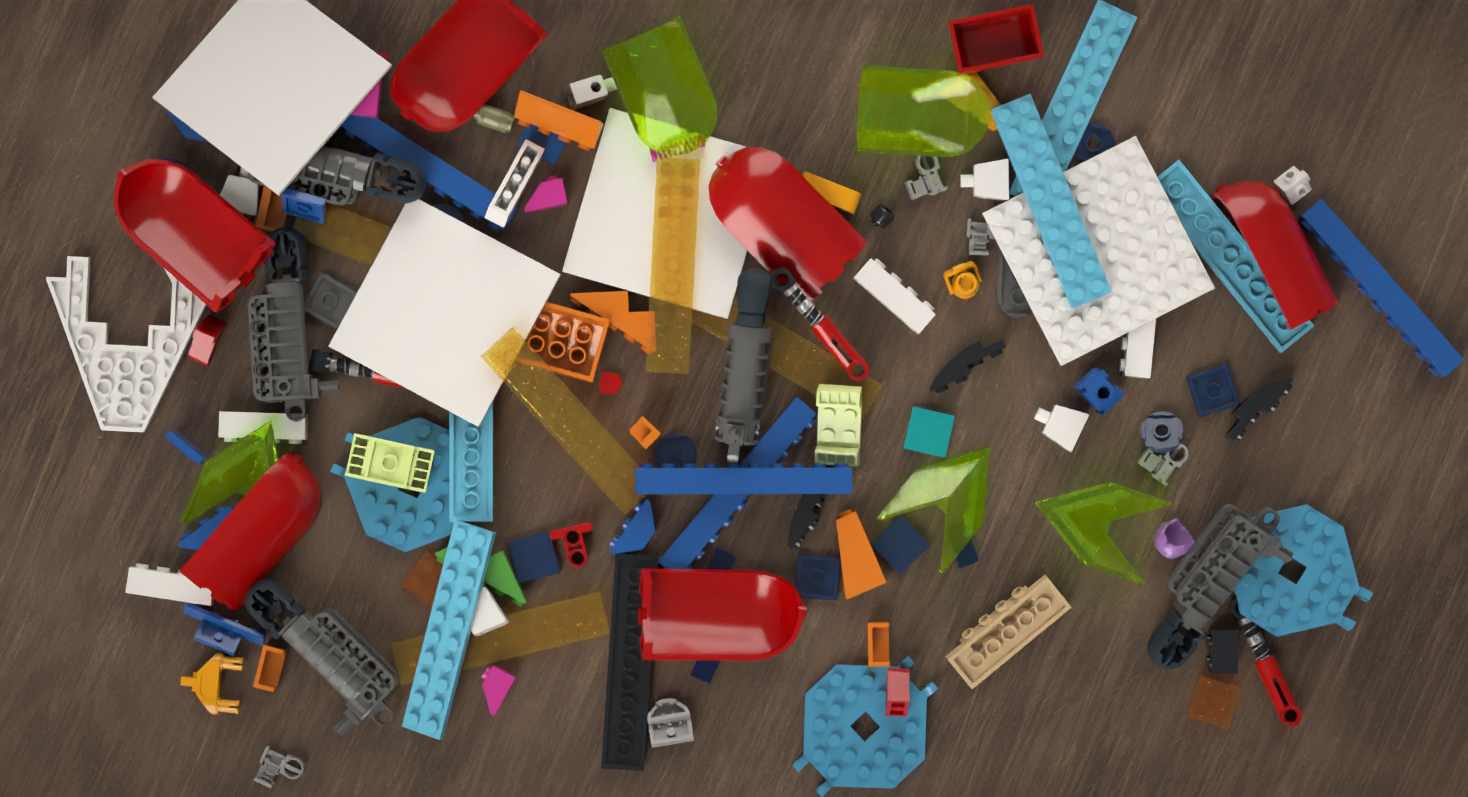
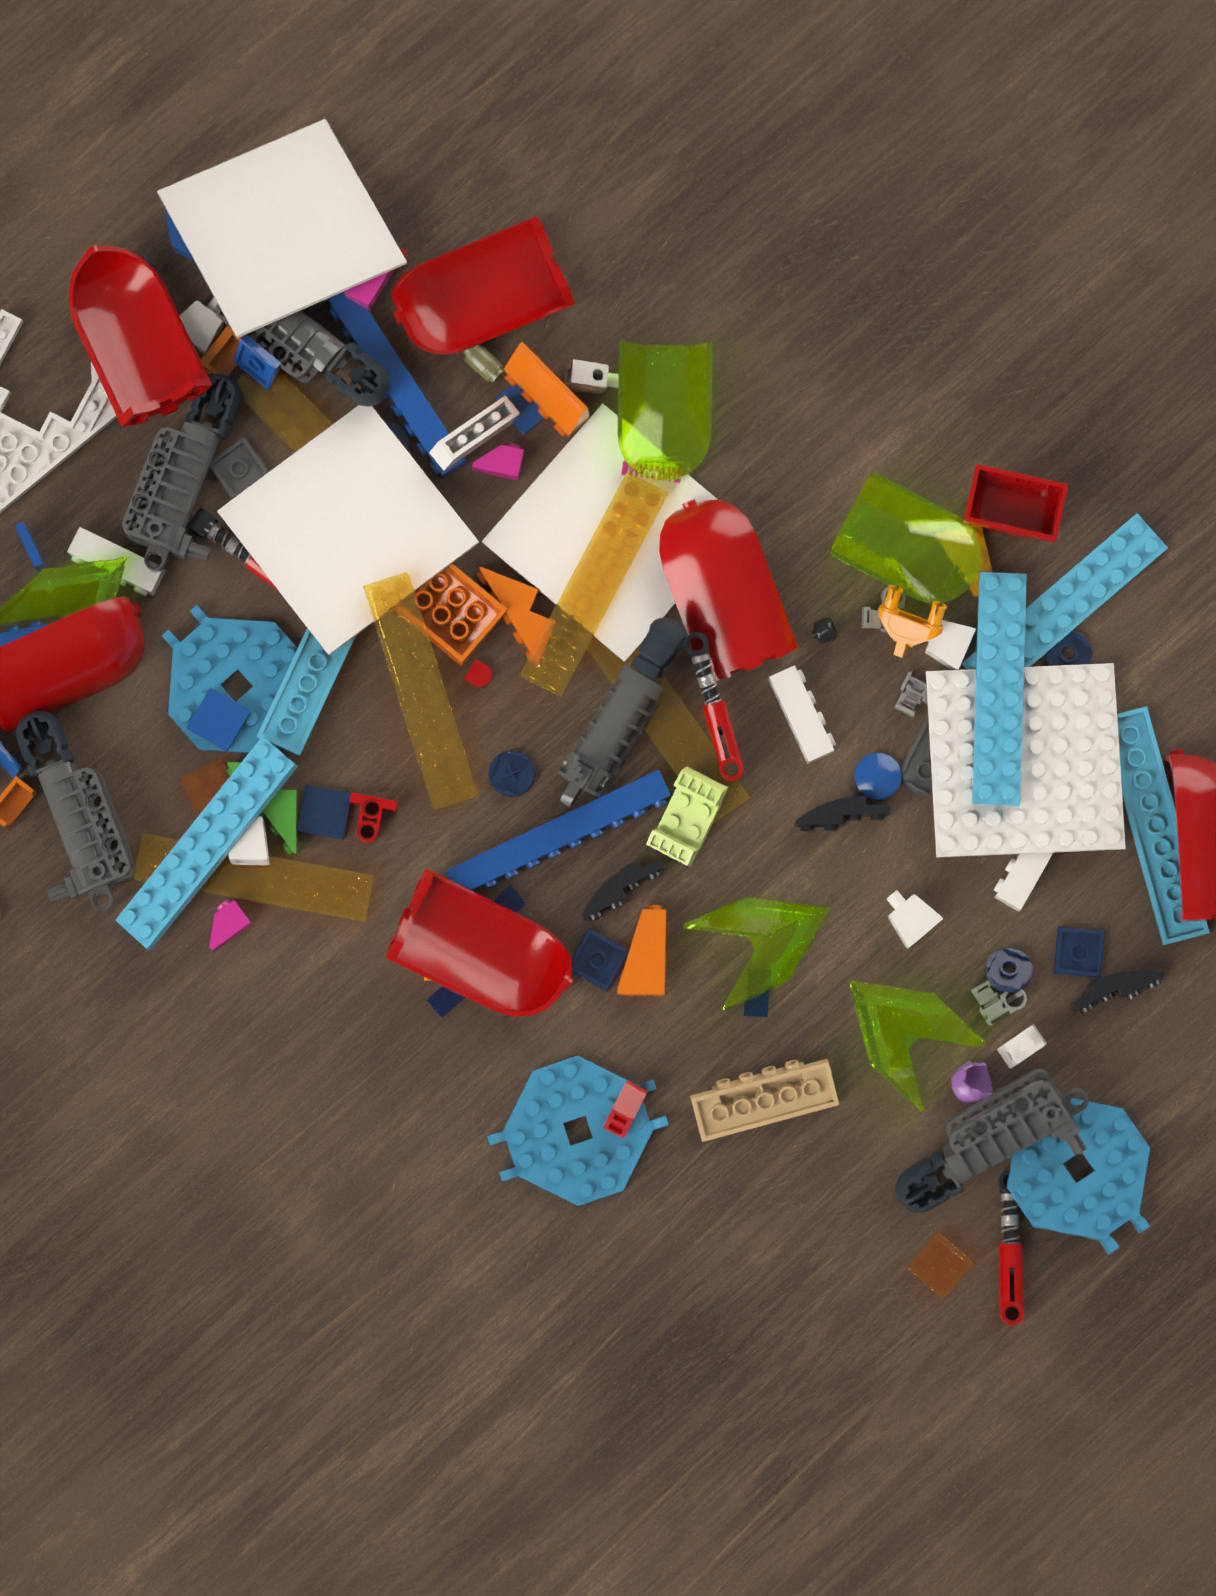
camera: 25 degrees right, 5 degrees down
(206, 339) = (99, 452): red tile -> none
(389, 463) = (224, 652): yellowish green plate -> none
(410, 521) = (218, 719): none -> blue tile
(627, 673) = (364, 968): black plate -> none
(637, 531) = (438, 832): blue slope -> none
(645, 432) = (491, 737): orange panel -> none
(669, 723) = (383, 1038): light grey slope -> none
(744, 480) = (568, 827): blue brick -> none
(837, 195) = (790, 591): light orange beam -> none
(878, 644) = (628, 1053): orange panel -> none
(900, 544) = (696, 964): dark blue tile -> none
(928, 432) = (775, 865): teal tile -> none
(950, 184) = (905, 627): none -> light orange connector
(963, 283) = (877, 734): light orange piece -> none
(981, 318) = (878, 776): none -> blue dish
(1089, 386) = (957, 887): blue brick -> none
(1201, 490) = (1021, 1046): none -> white torso
(1222, 651) = (971, 1218): black piece -> none

